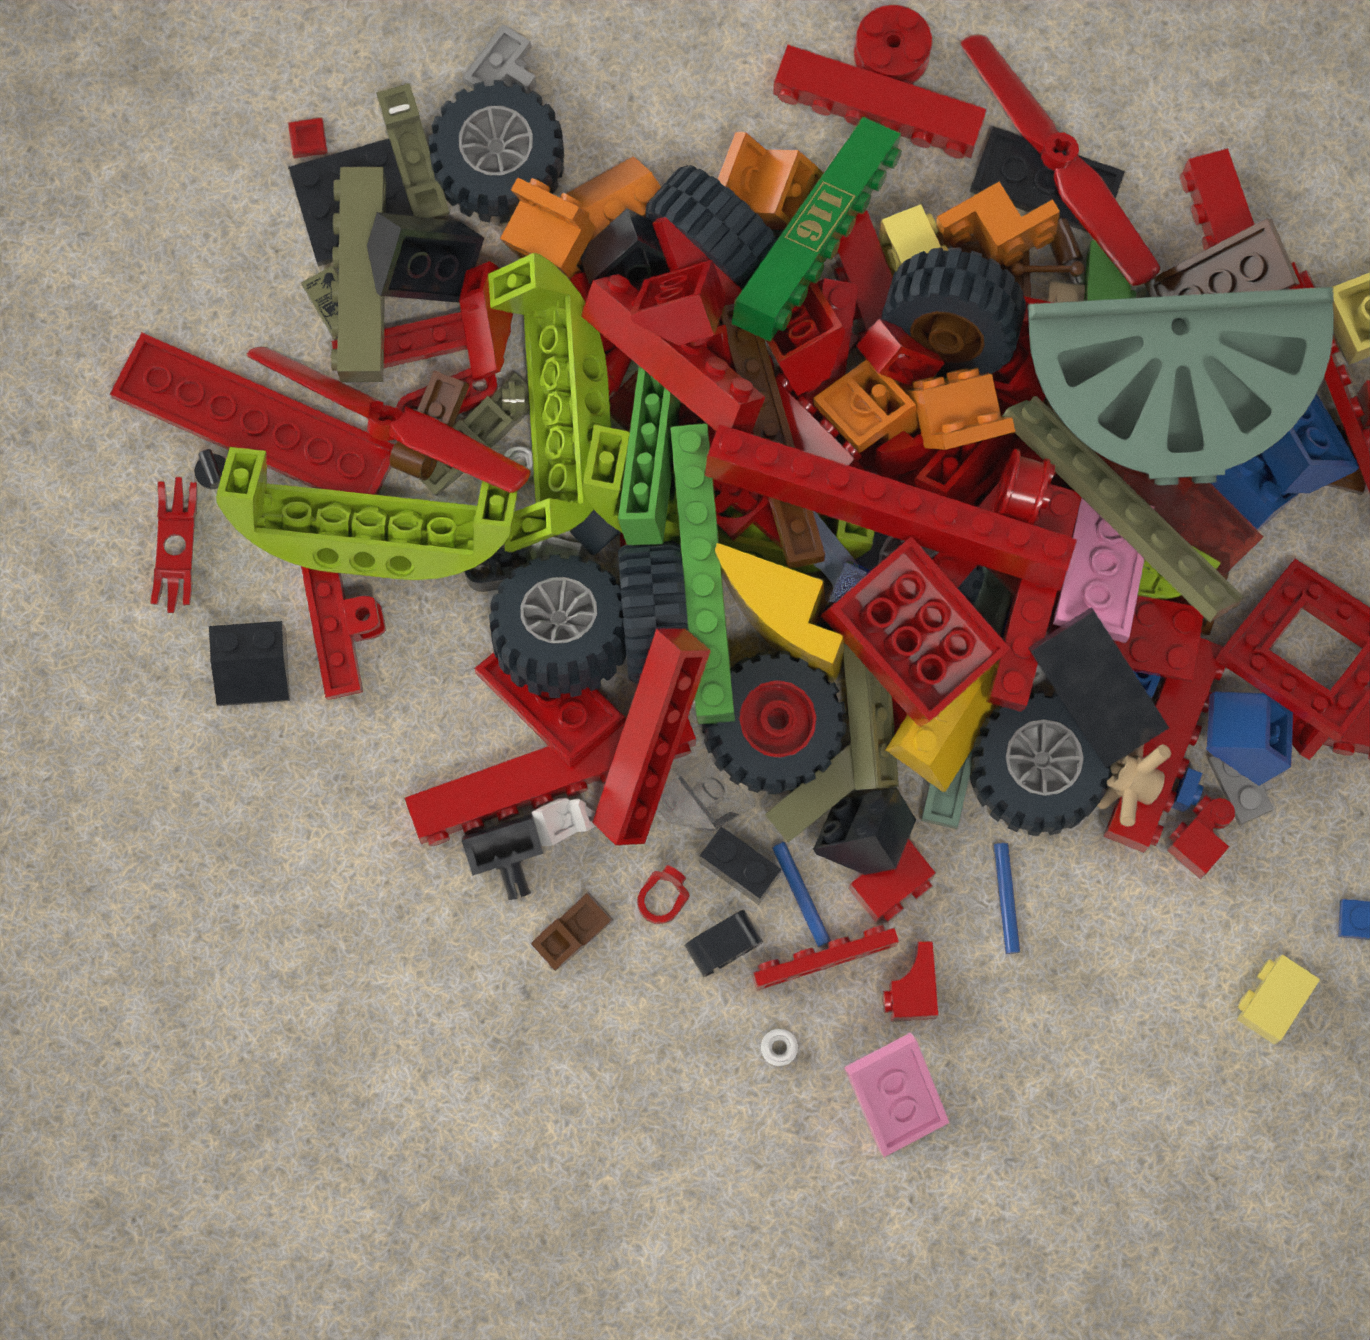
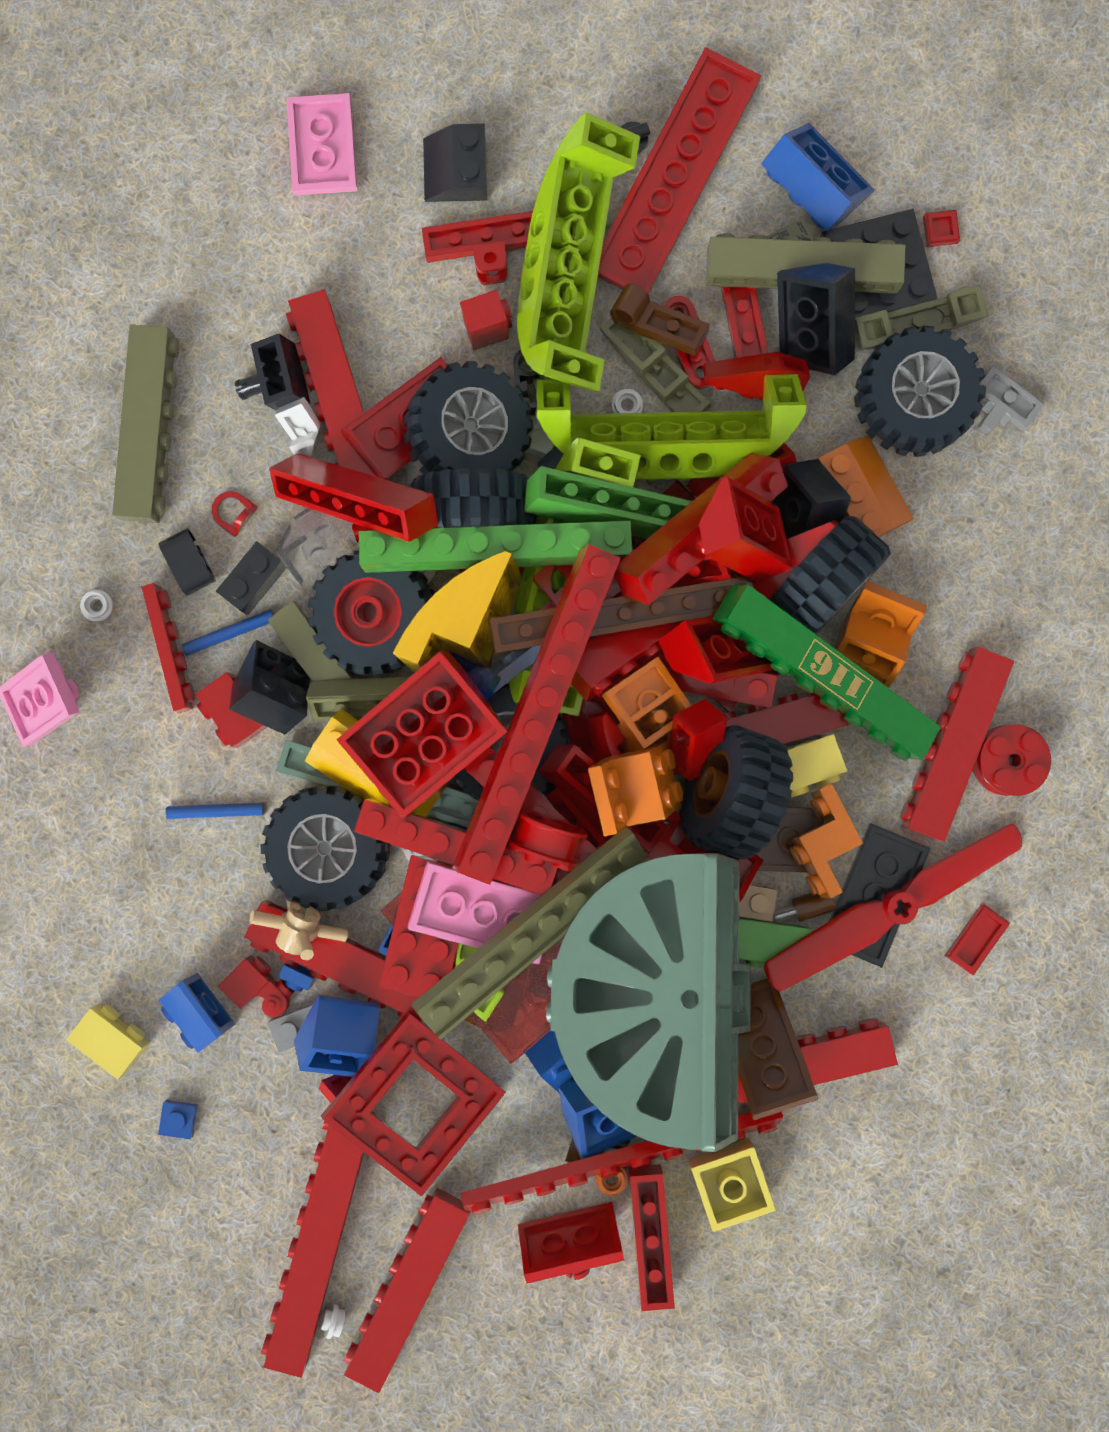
camera: 95 degrees right, 10 degrees up
(174, 524) = (546, 102): red piece -> none
(227, 817) = (321, 144): none -> bright pink plate
(256, 268) = (816, 176): none -> blue slope
(410, 428) = (653, 302): red piece -> none
(434, 615) = (486, 319): none -> red brick
(513, 398) = (683, 397): olive plate -> none
(548, 226) = (836, 428): orange bracket -> none
(565, 1000) = (145, 424): none -> olive brick
(572, 931) = (207, 433): reddish brown slope -> none
(916, 993) = (132, 722): red arch -> none
(1075, 269) = (786, 913): dark orange hinge -> none
(1086, 76) = (977, 939): none -> red tile
(1098, 687) = (369, 898): black tile -> none
(1239, 899) = (196, 1012): none -> blue slope

